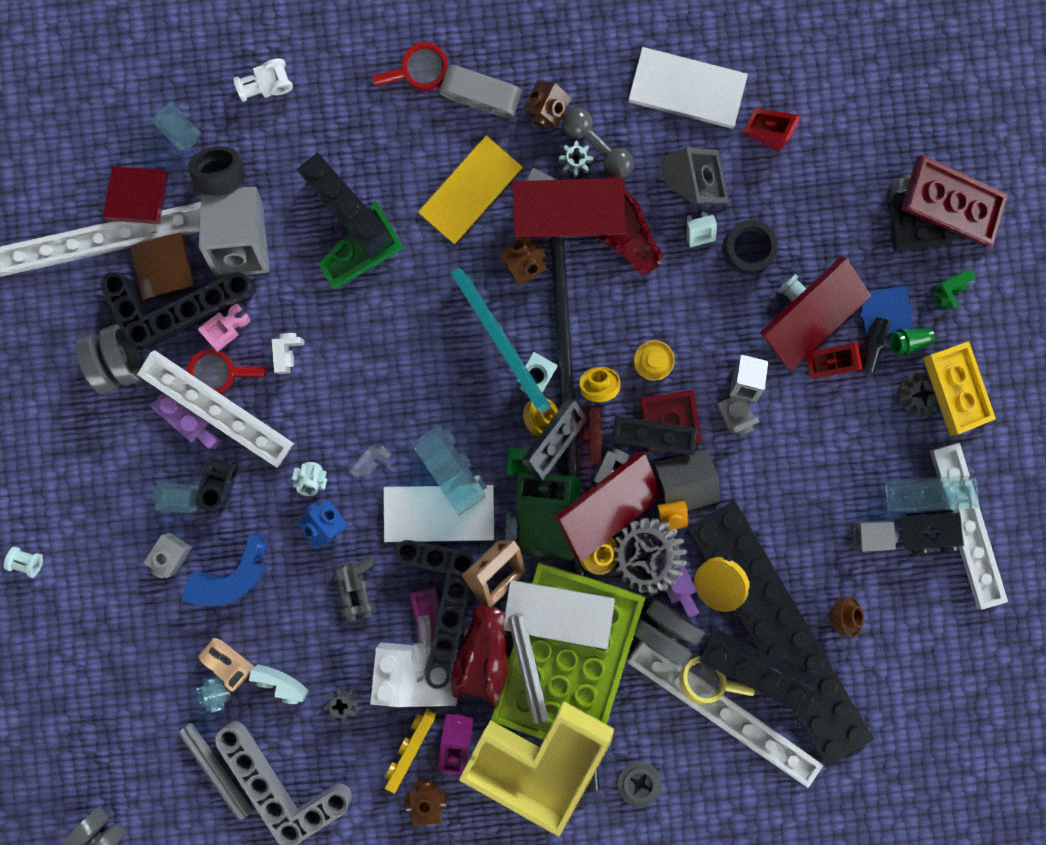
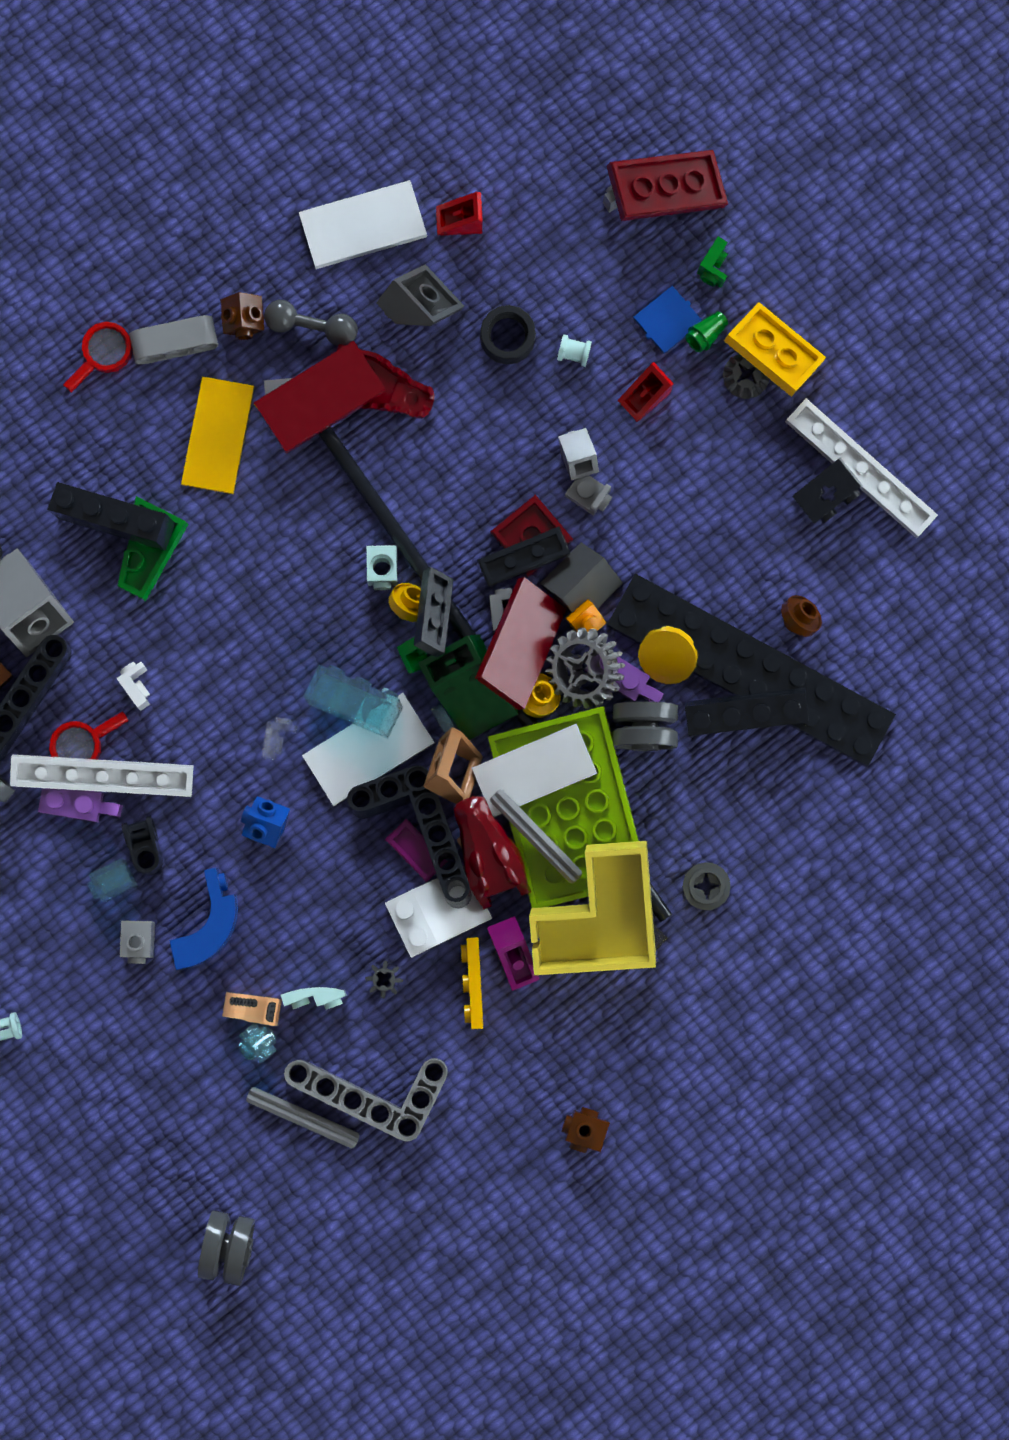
camera: 40 degrees left, 5 degrees down
(221, 329) = (62, 700): bright pink plate -> none
(309, 479) = (228, 788): light aqua gear -> none
(351, 579) = (322, 859): dark grey piece -> none
(421, 651) = (425, 874): clear slope -> none
(426, 803) = (522, 1032): reddish brown brick -> none
(501, 340) = (329, 552): teal tile -> none
(524, 260) = (307, 469): reddish brown brick -> none
(582, 156) = (303, 343): light aqua gear -> none
(592, 435) = (467, 591): clear red plate -> none
(599, 384) = (445, 540): yellow plate -> none
(654, 360) = (482, 489): yellow plate -> none
(701, 230) = (453, 345): light aqua tile -> none
(706, 685) = (710, 753): piece -> none
(730, 718) = (744, 774): white tile -> none
(815, 313) = (603, 359): dark red tile -> none
(875, 344) = (675, 356): black axle -> none
(875, 535) = (781, 527): light grey brick -> none
(911, 232) = (648, 234): black plate -> none
(931, 493) = (804, 458): clear light blue brick -> none

